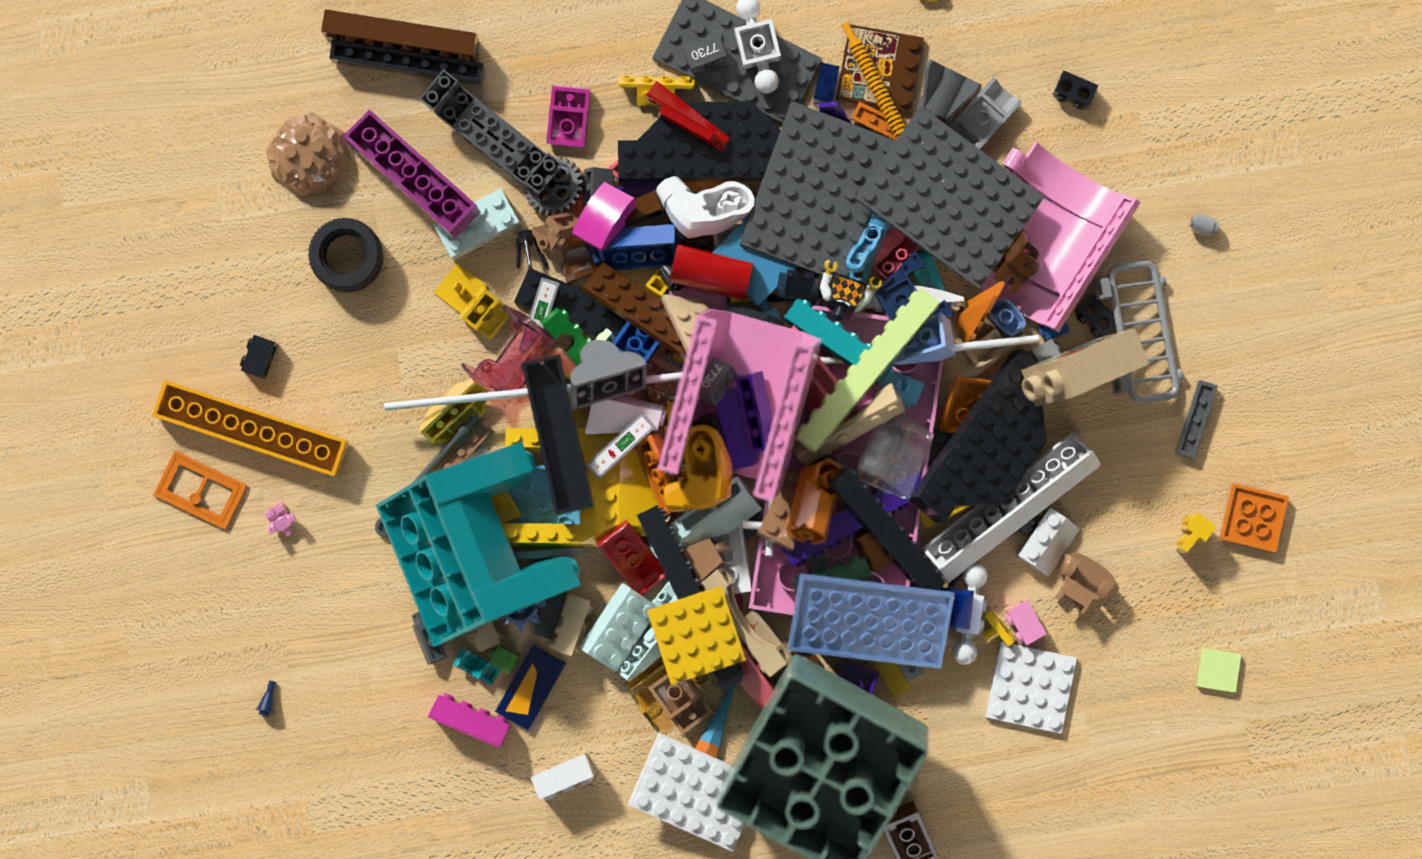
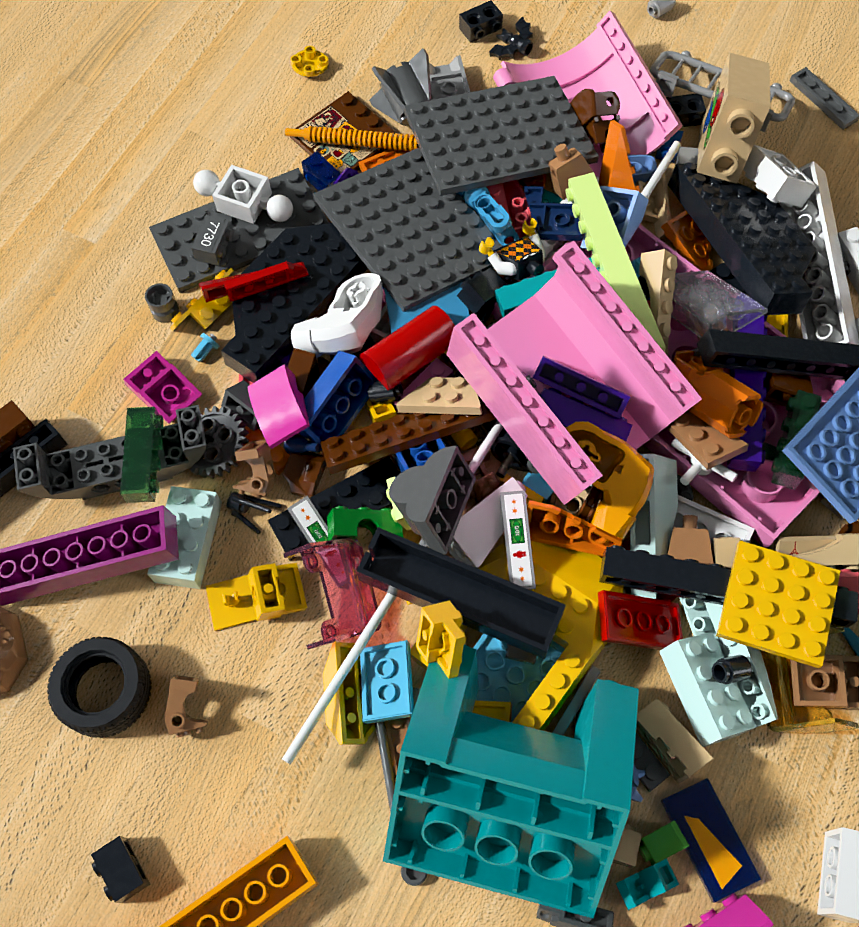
camera: 55 degrees left, 20 degrees down
(362, 319) = (180, 688): none -> medium nougat tile
(477, 429) = (386, 682): none -> medium azure tile
(502, 155) = (140, 455): none -> clear green brick
(518, 445) = (441, 637): none -> yellow brick
(621, 117) = (205, 347): none -> medium azure piece
(630, 58) = (161, 302): none -> dark grey wheel
(636, 633) = (731, 669): none -> black brick
(949, 278) = (565, 166): none -> medium nougat torso
(1060, 433) = (778, 177): none -> white brick
(1075, 135) = (516, 42): none -> black animal

